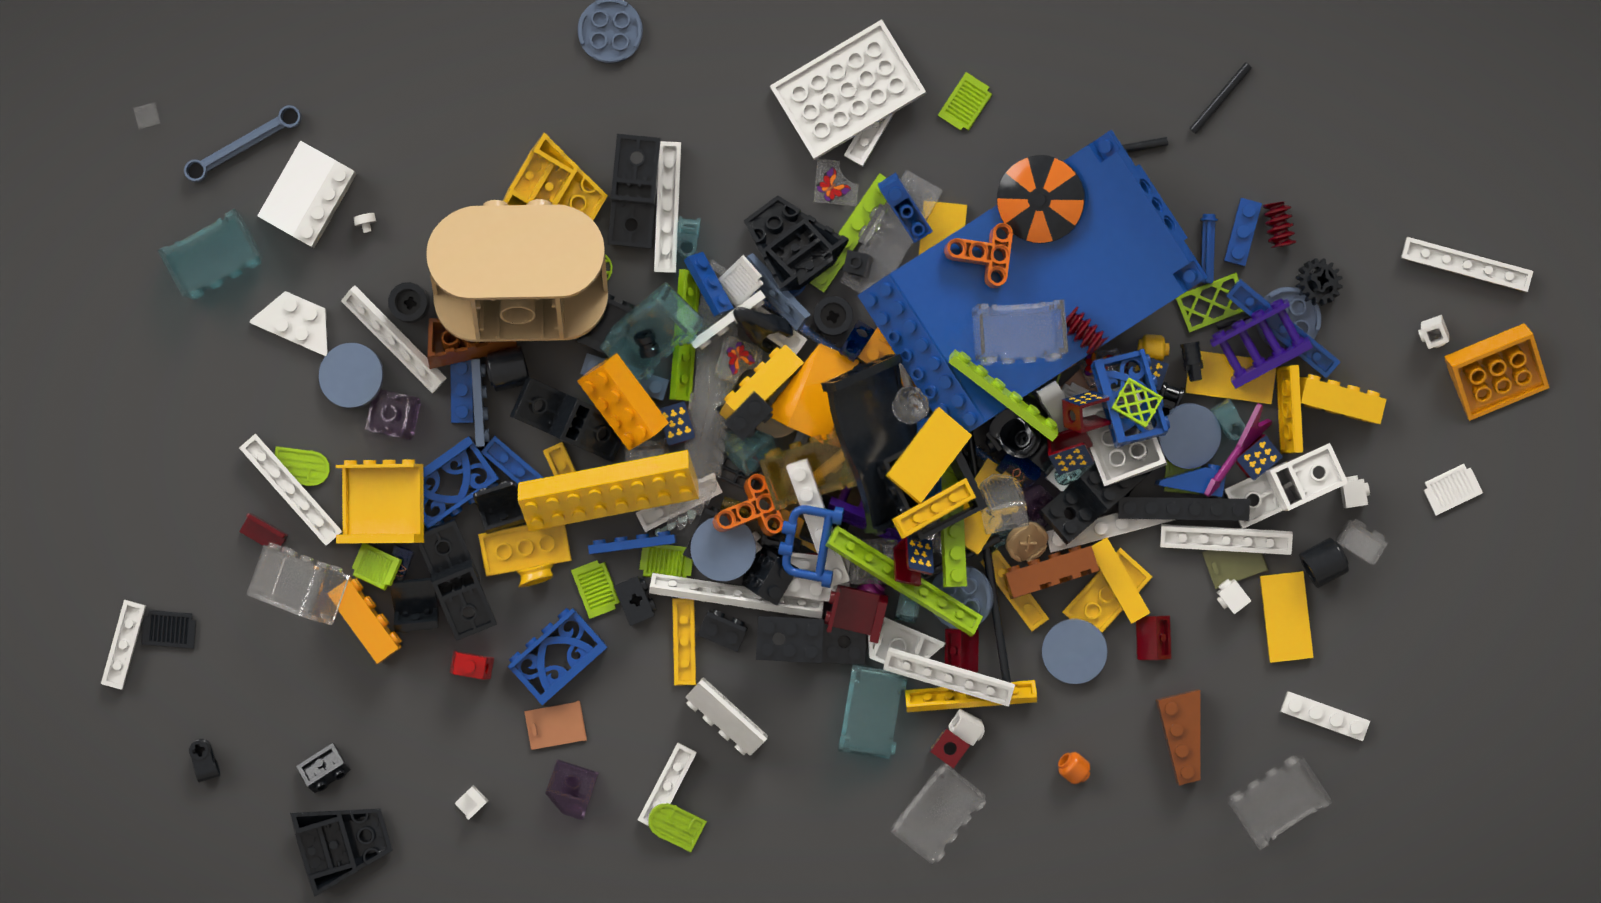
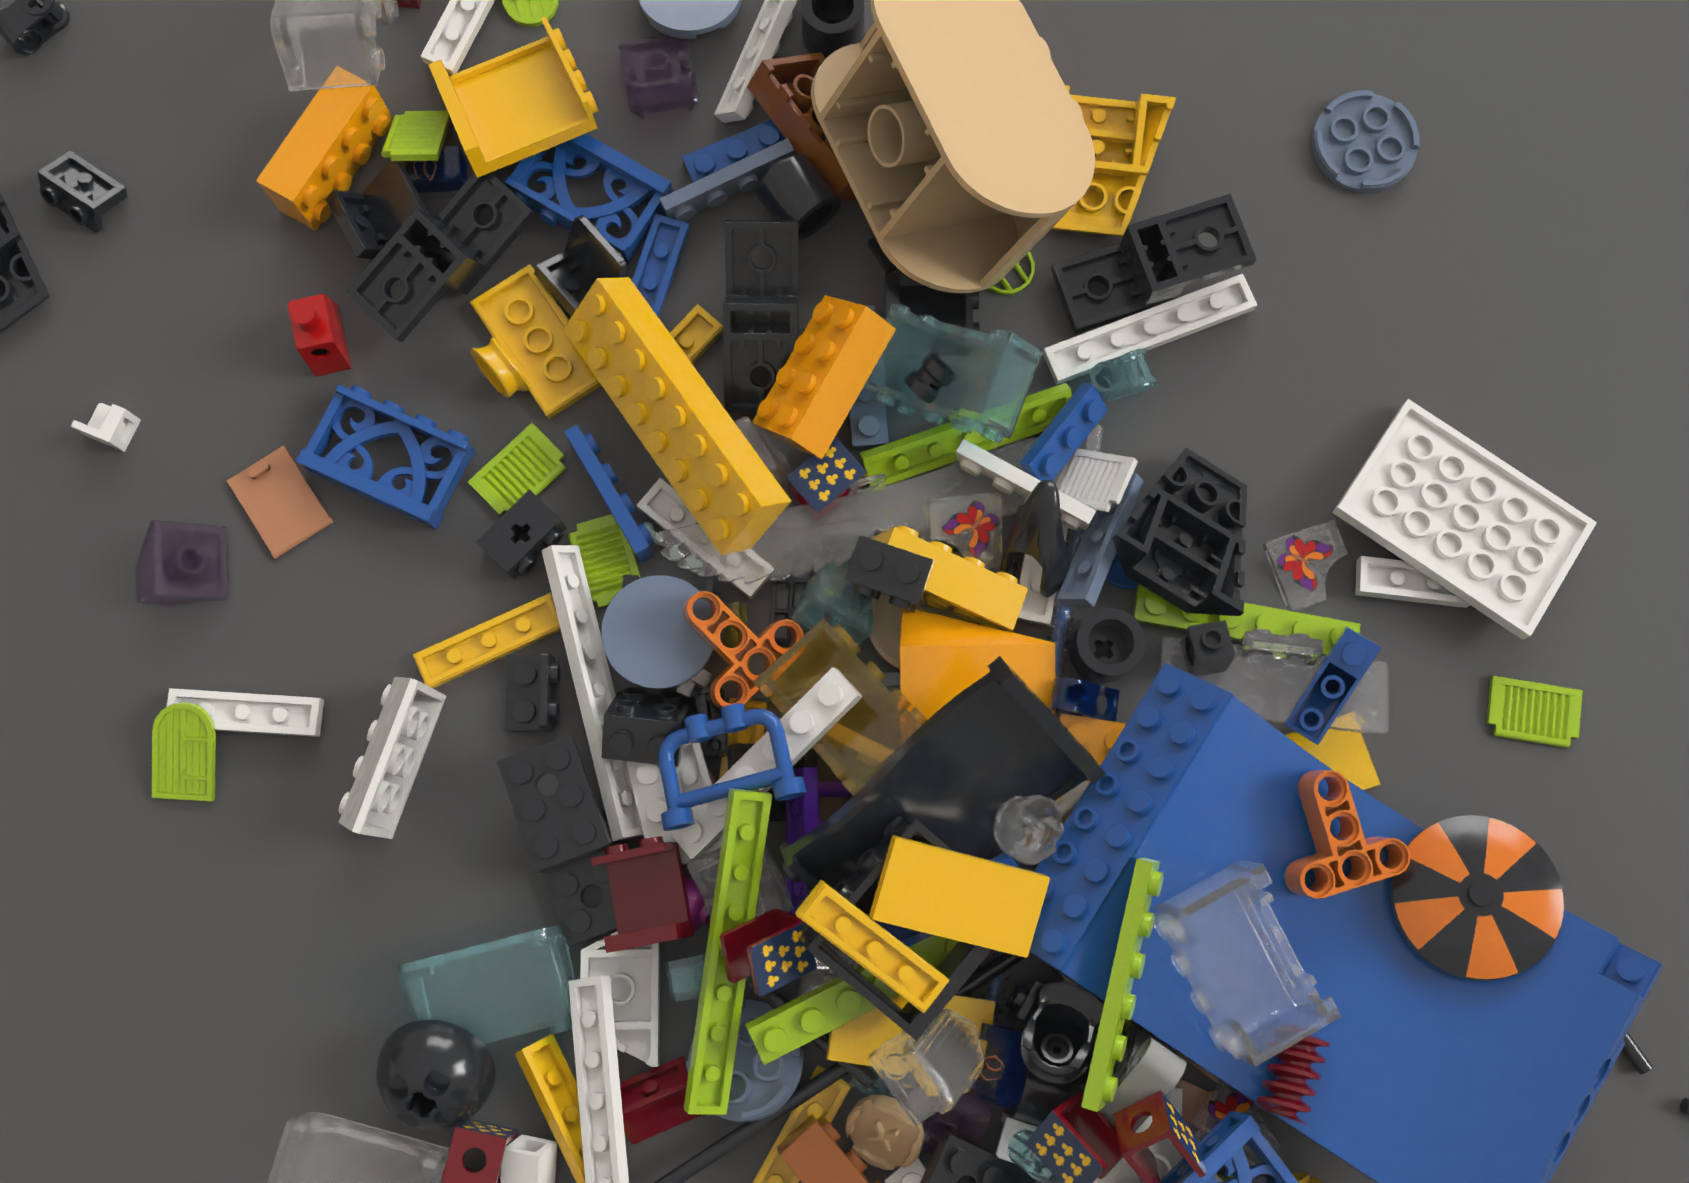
camera: 70 degrees right, 10 degrees down
(899, 755) = (434, 1074): none -> black piece

